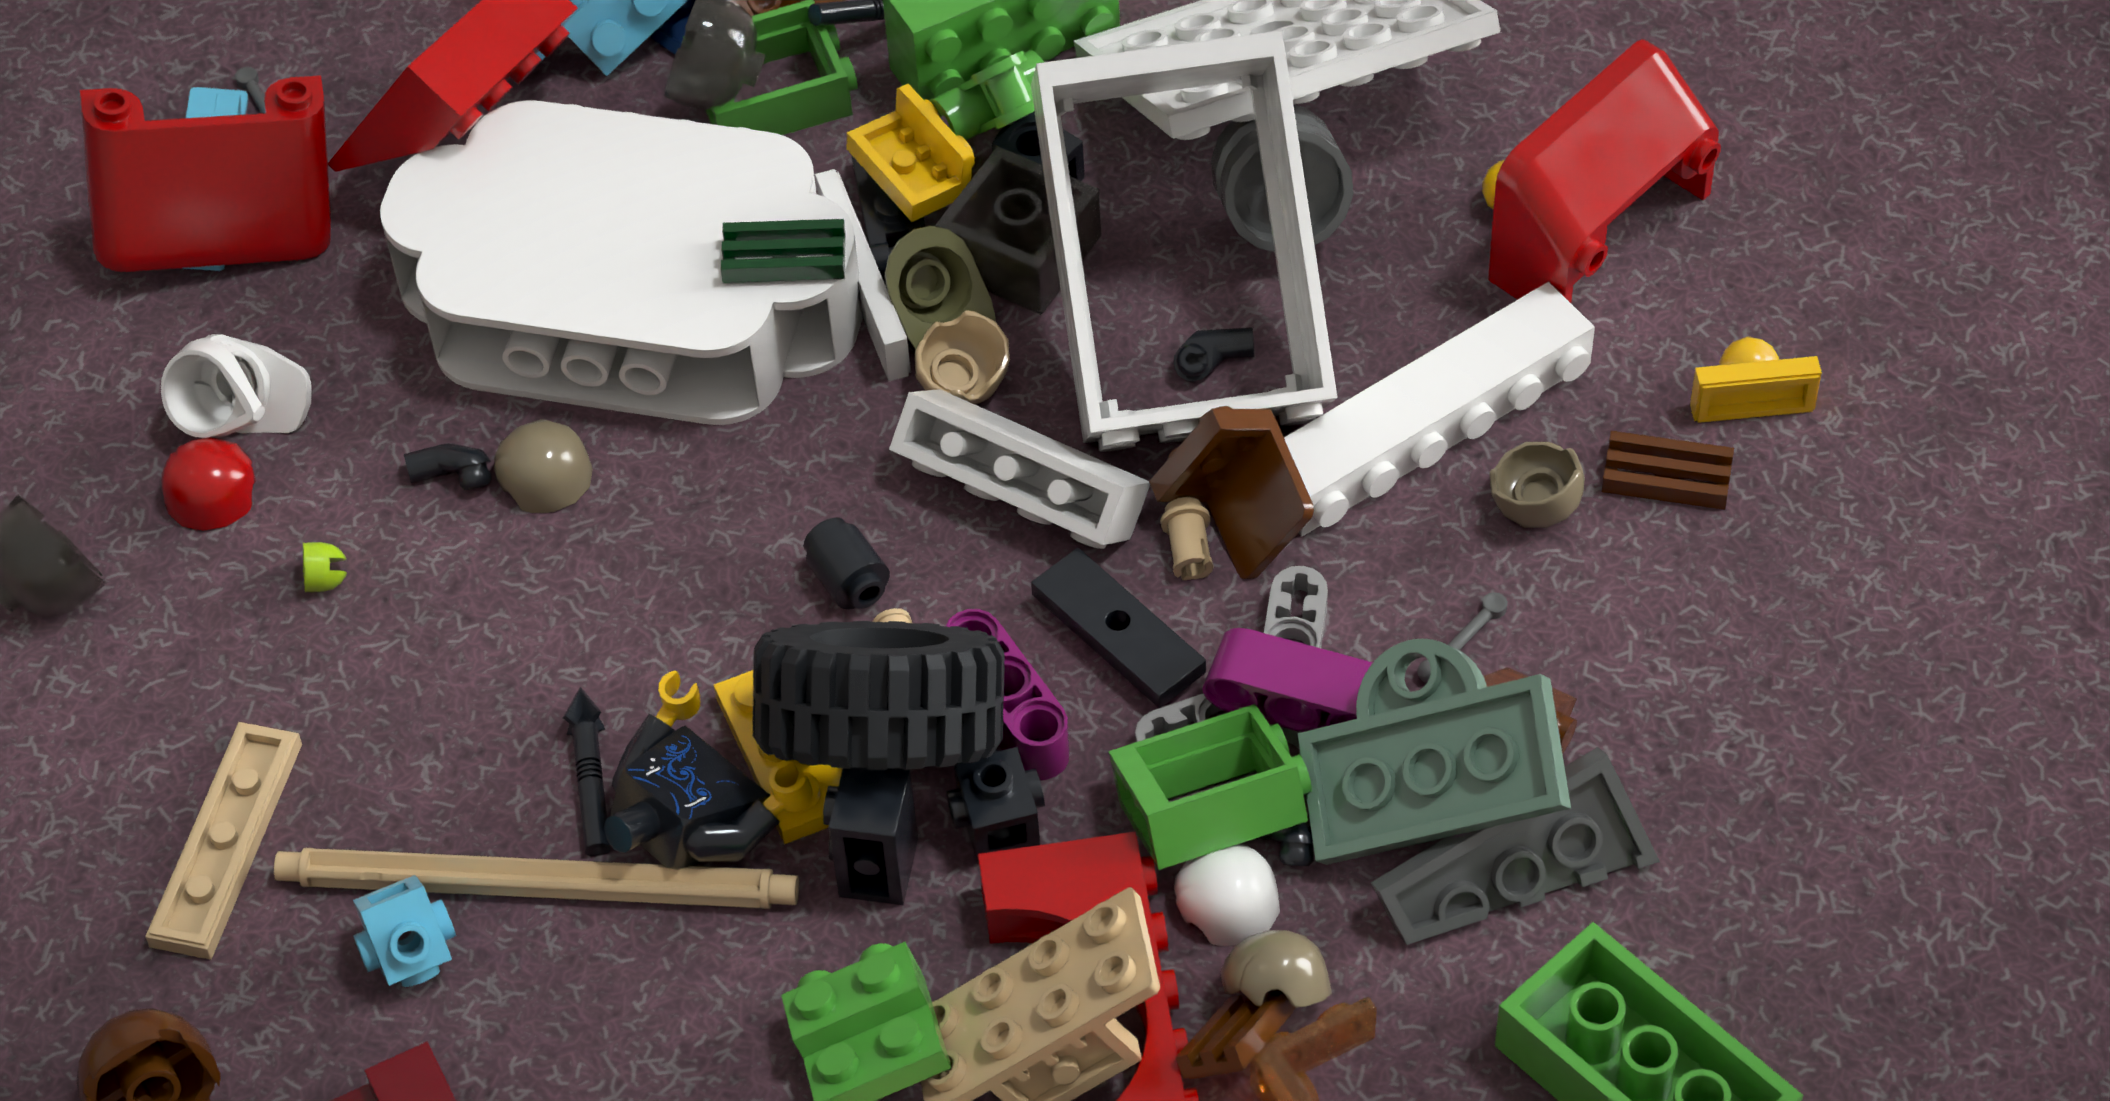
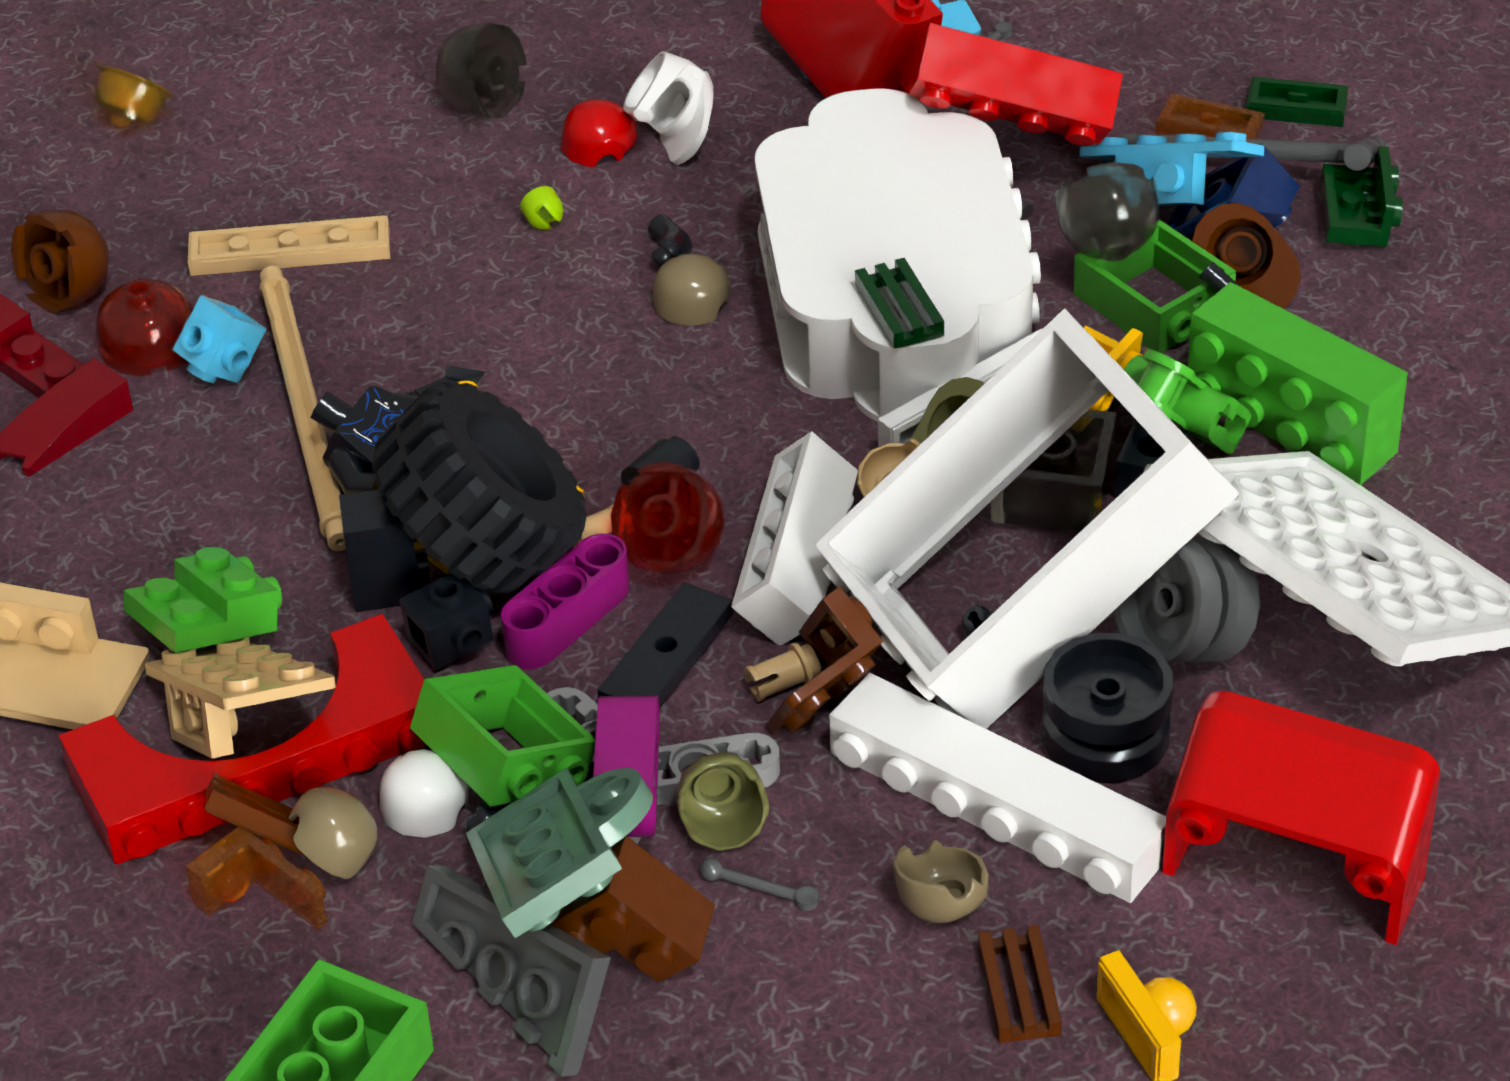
camera: 70 degrees right, 10 degrees down
(312, 1016) = (141, 325): none -> clear red cylinder
(950, 560) = (668, 518): none -> clear red cylinder
(1363, 619) = (722, 801): none -> olive hair
(1378, 287) = (1107, 706): none -> black wheel

